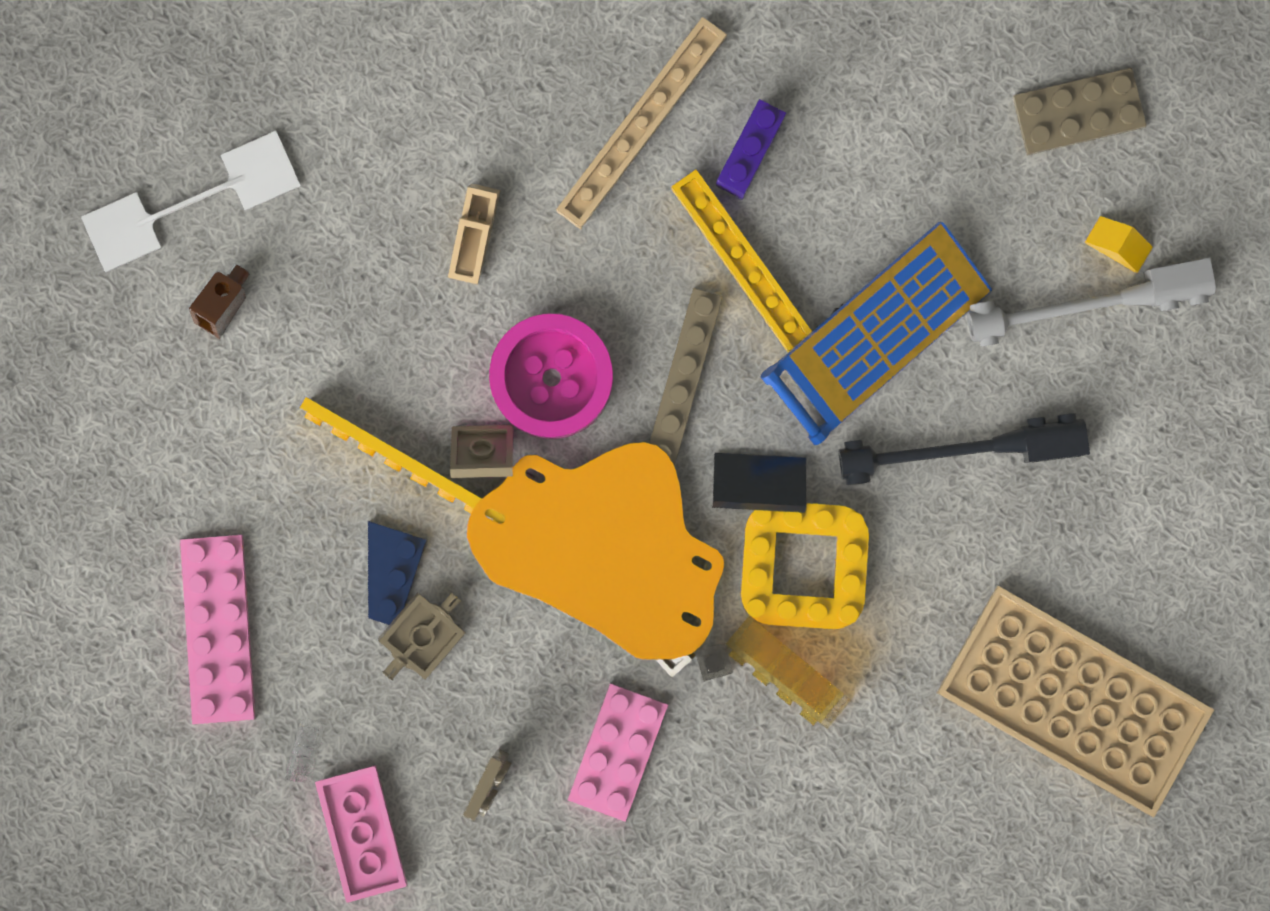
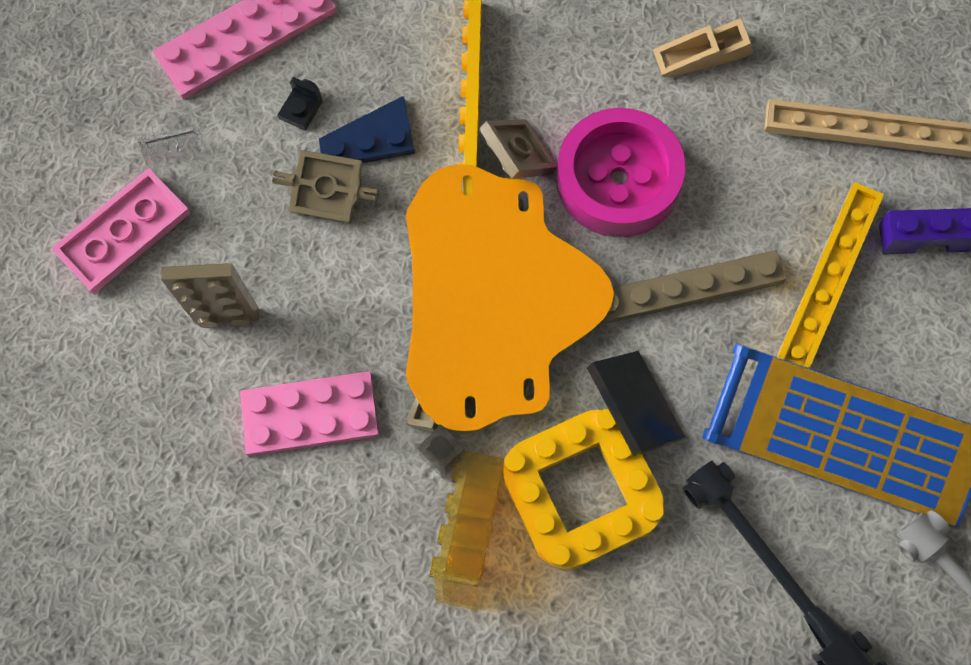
camera: 65 degrees right, 15 degrees down
(324, 616) = (301, 103): none -> black bracket

